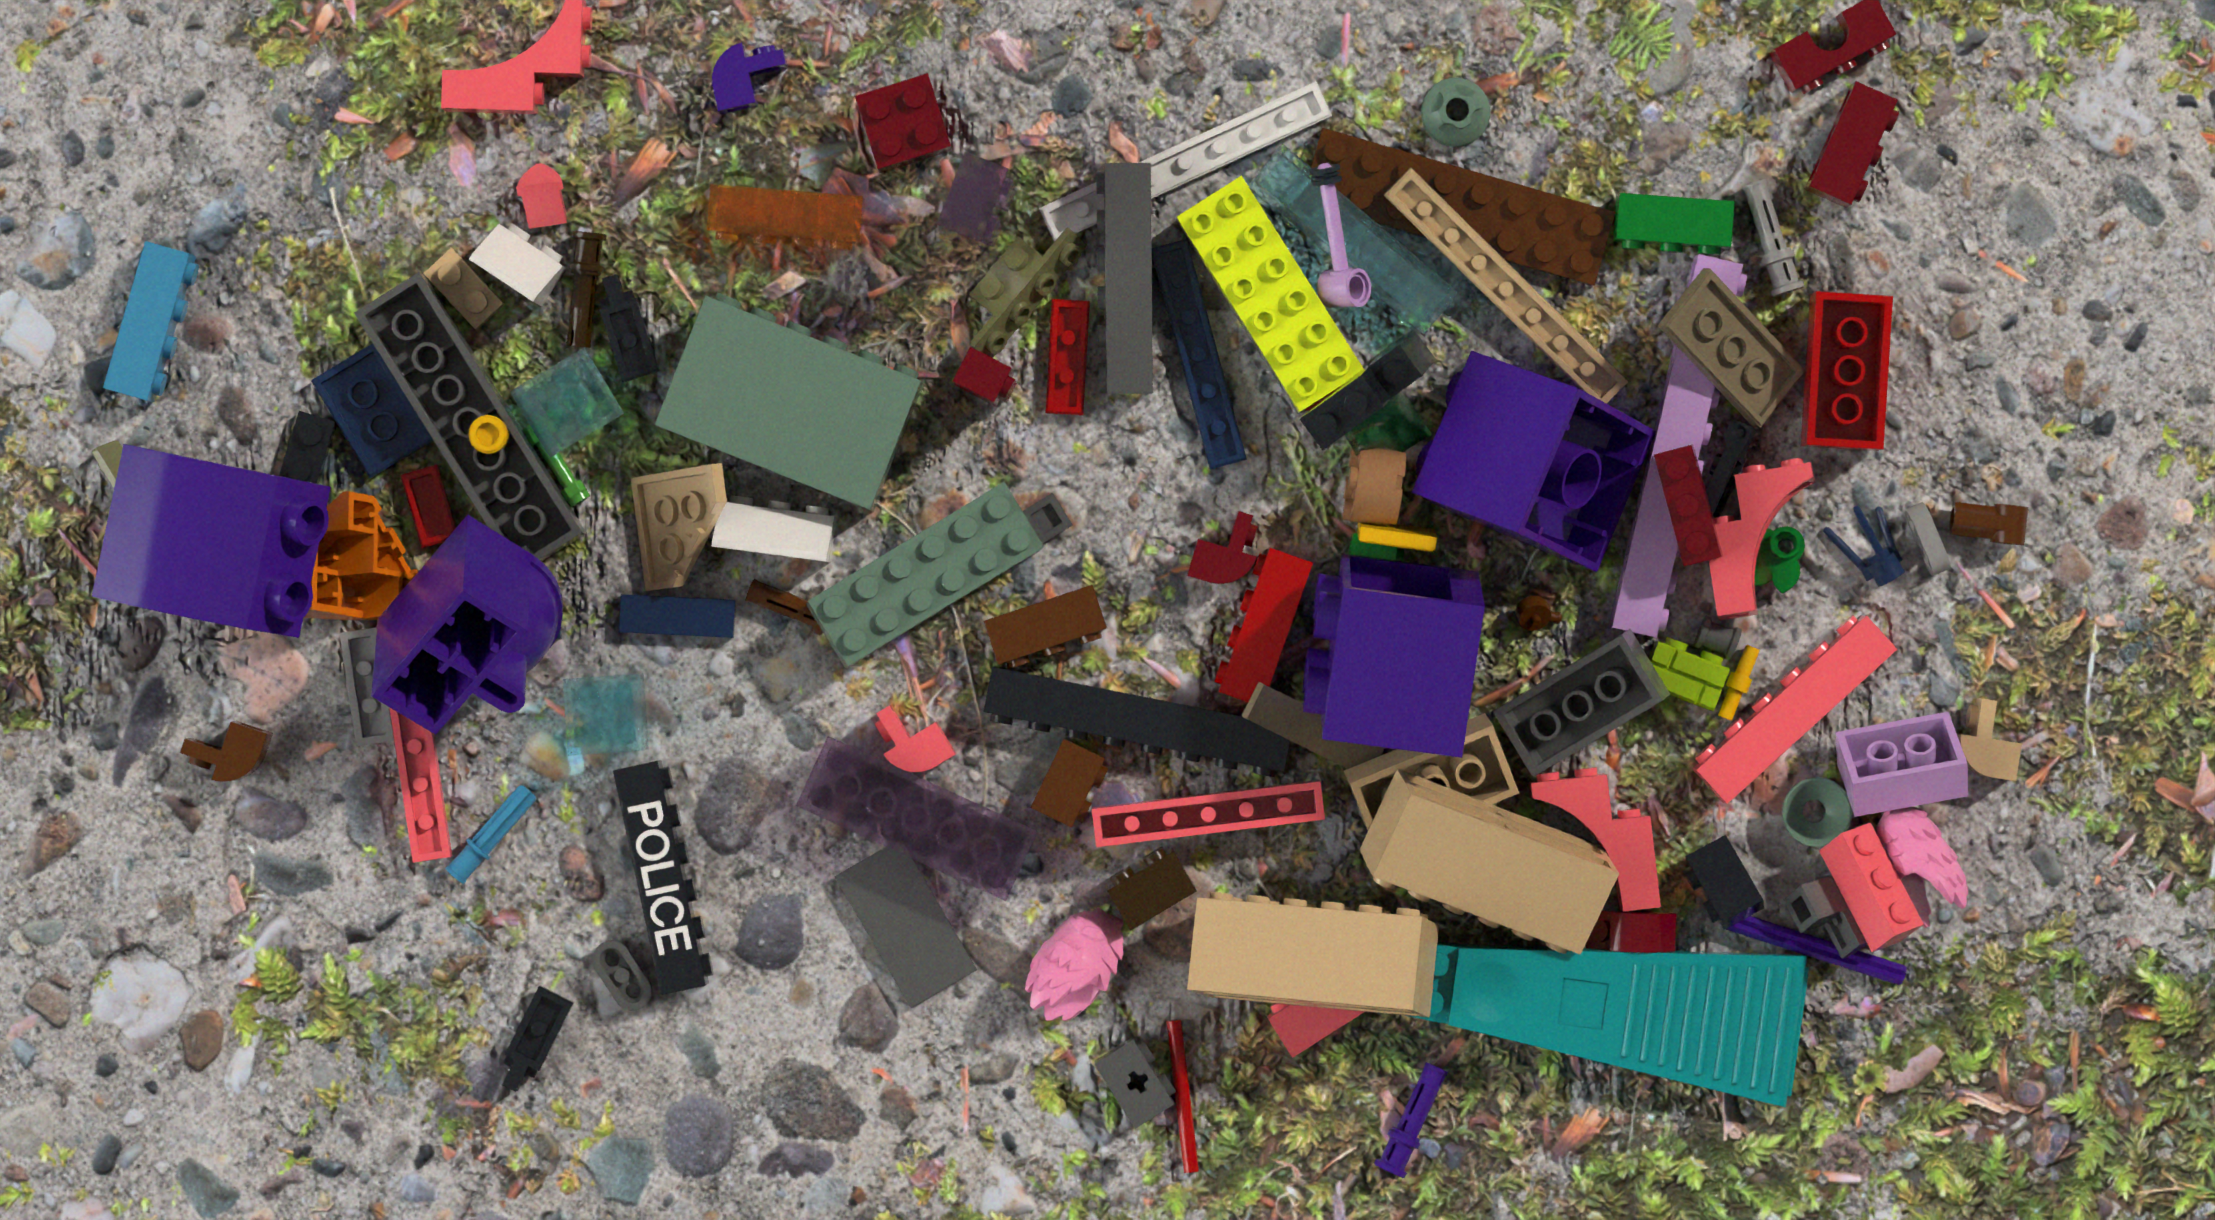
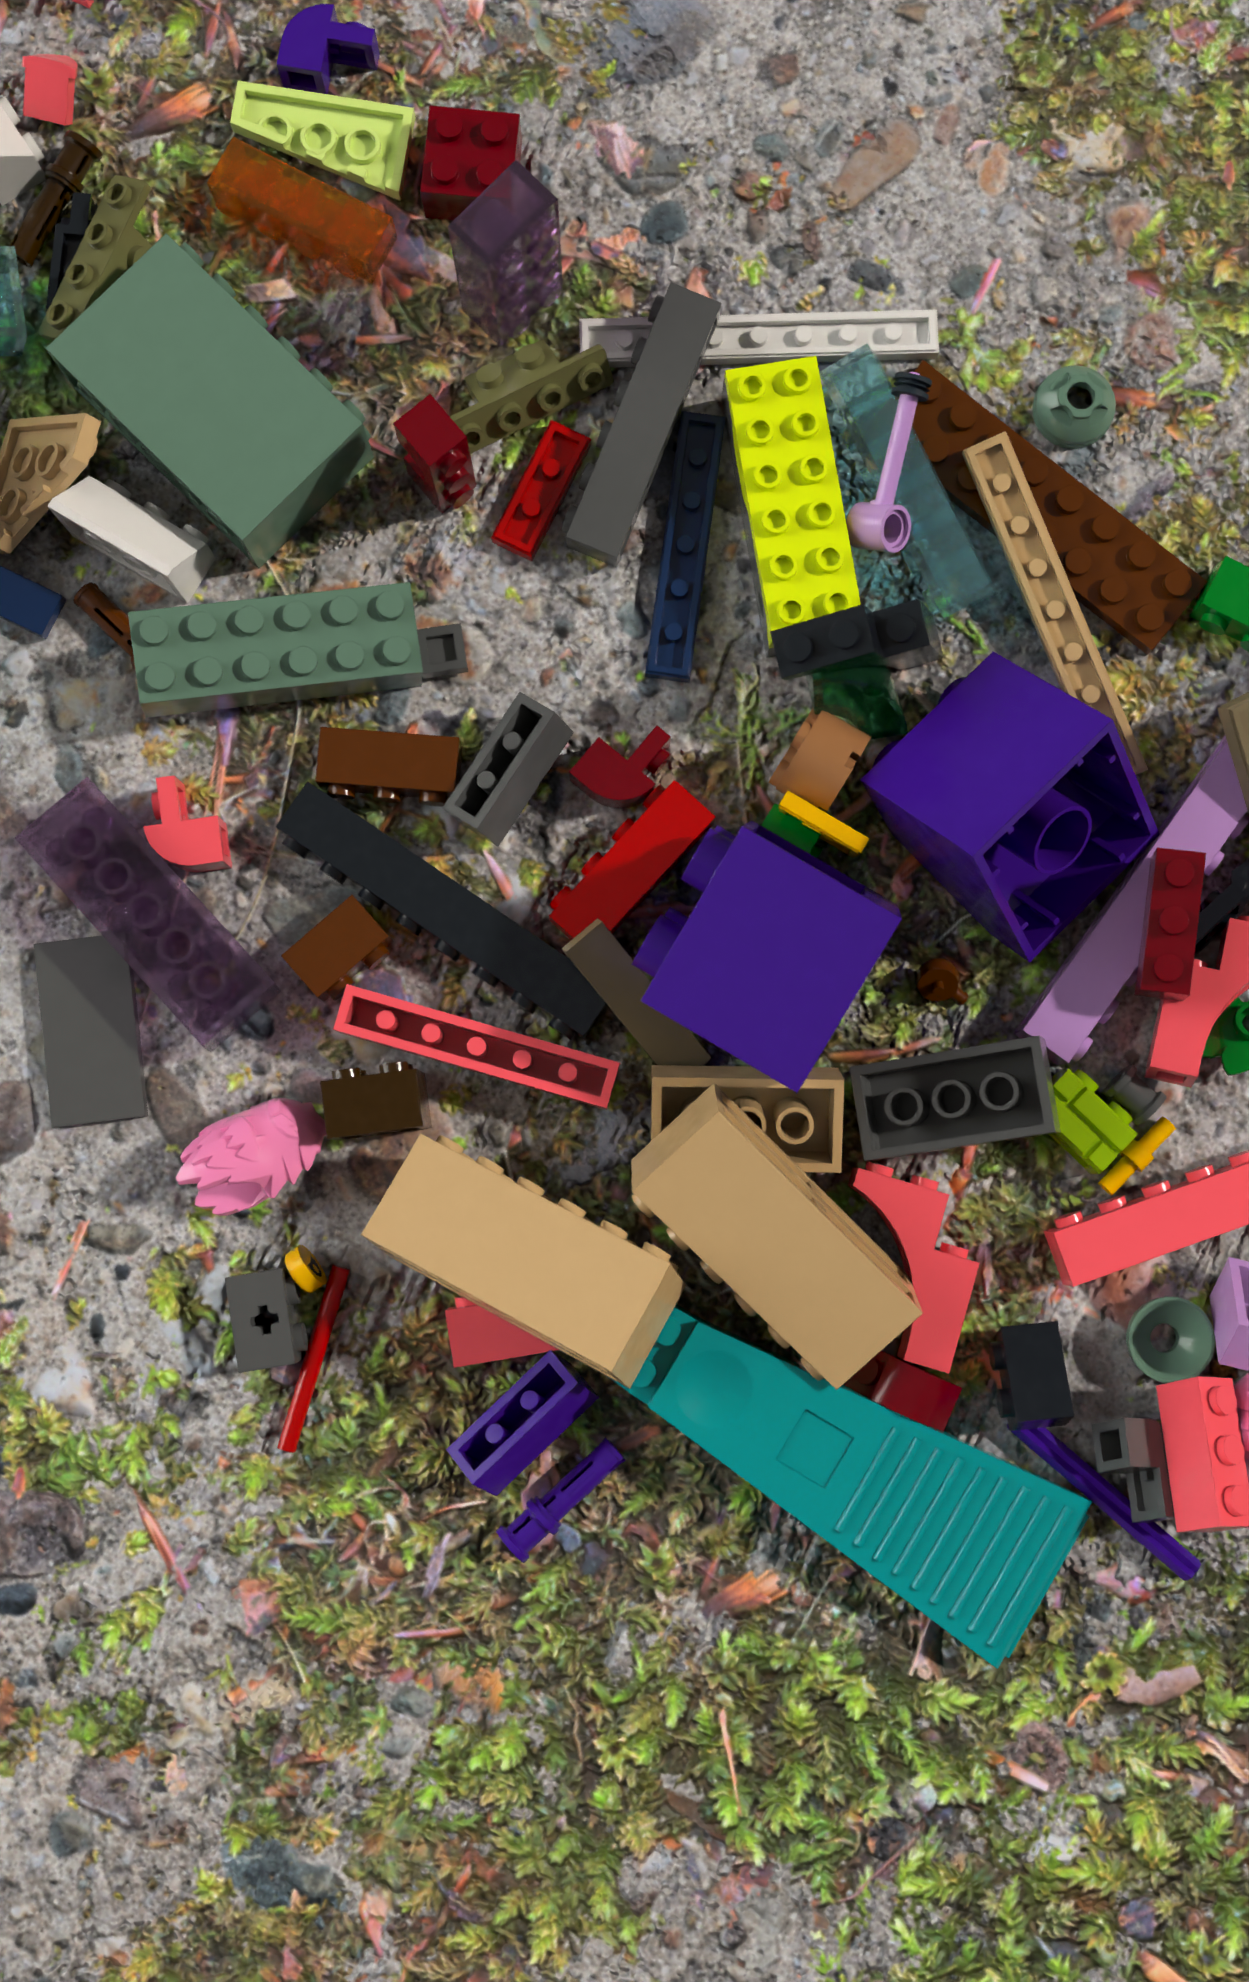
camera: 20 degrees right, 5 degrees down
(653, 328) = (103, 255): none -> olive bracket
(783, 139) = (337, 133): none -> yellowish green wing
(1139, 592) = (508, 769): none -> dark grey brick
(1148, 1033) = (305, 1269): none -> yellow tile
(1360, 1077) = (522, 1423): none -> dark purple brick

